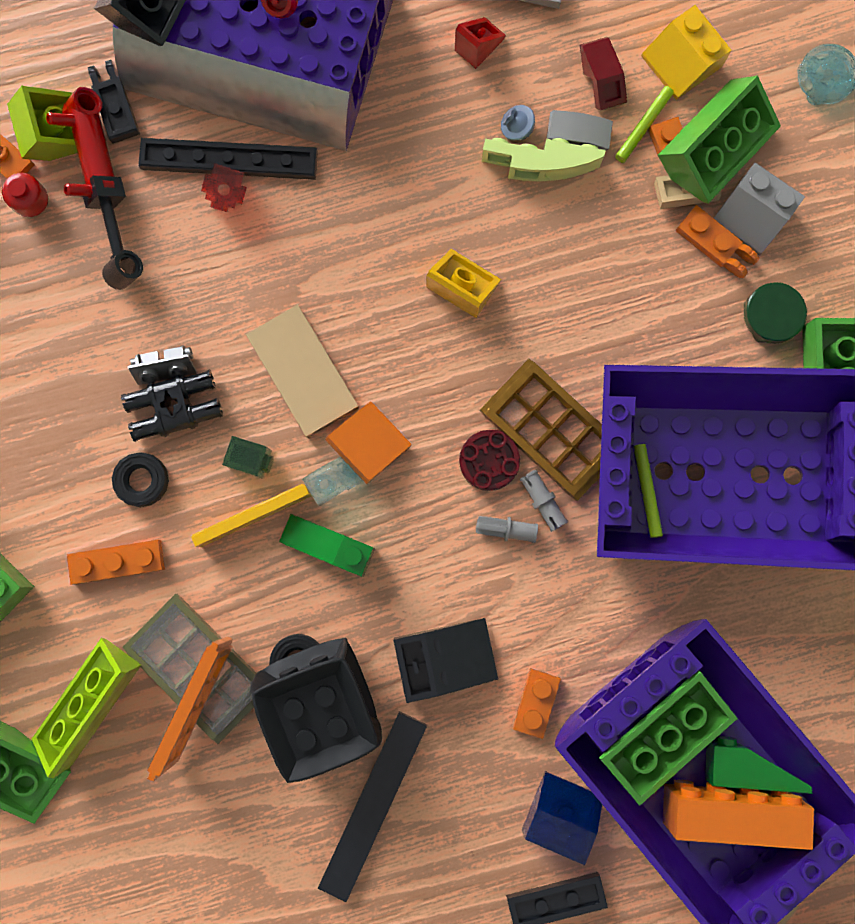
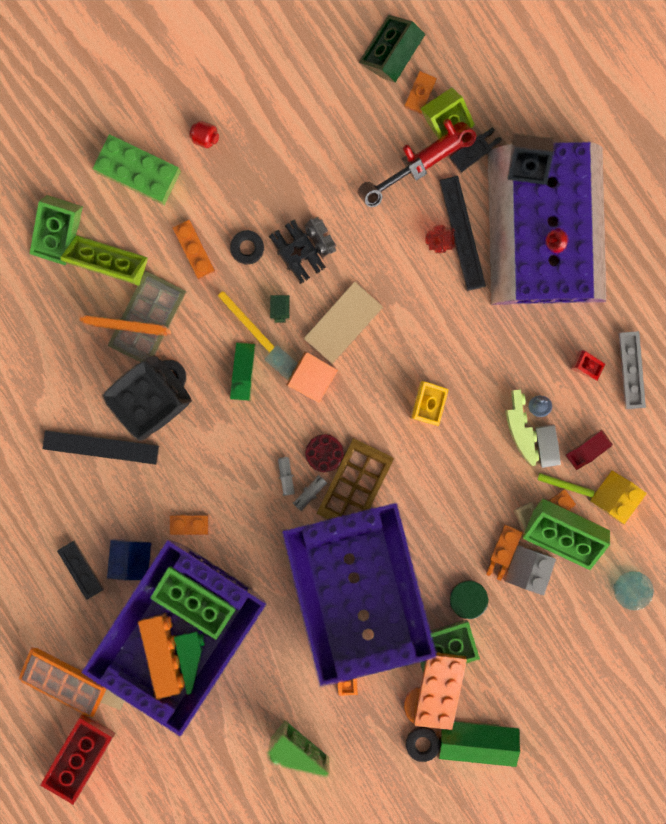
camera: 70 degrees right, 5 degrees up
(25, 195) = (398, 118): red head -> none
(445, 659) = (197, 463): black slope -> none
(648, 491) = (332, 552): lime bar -> none

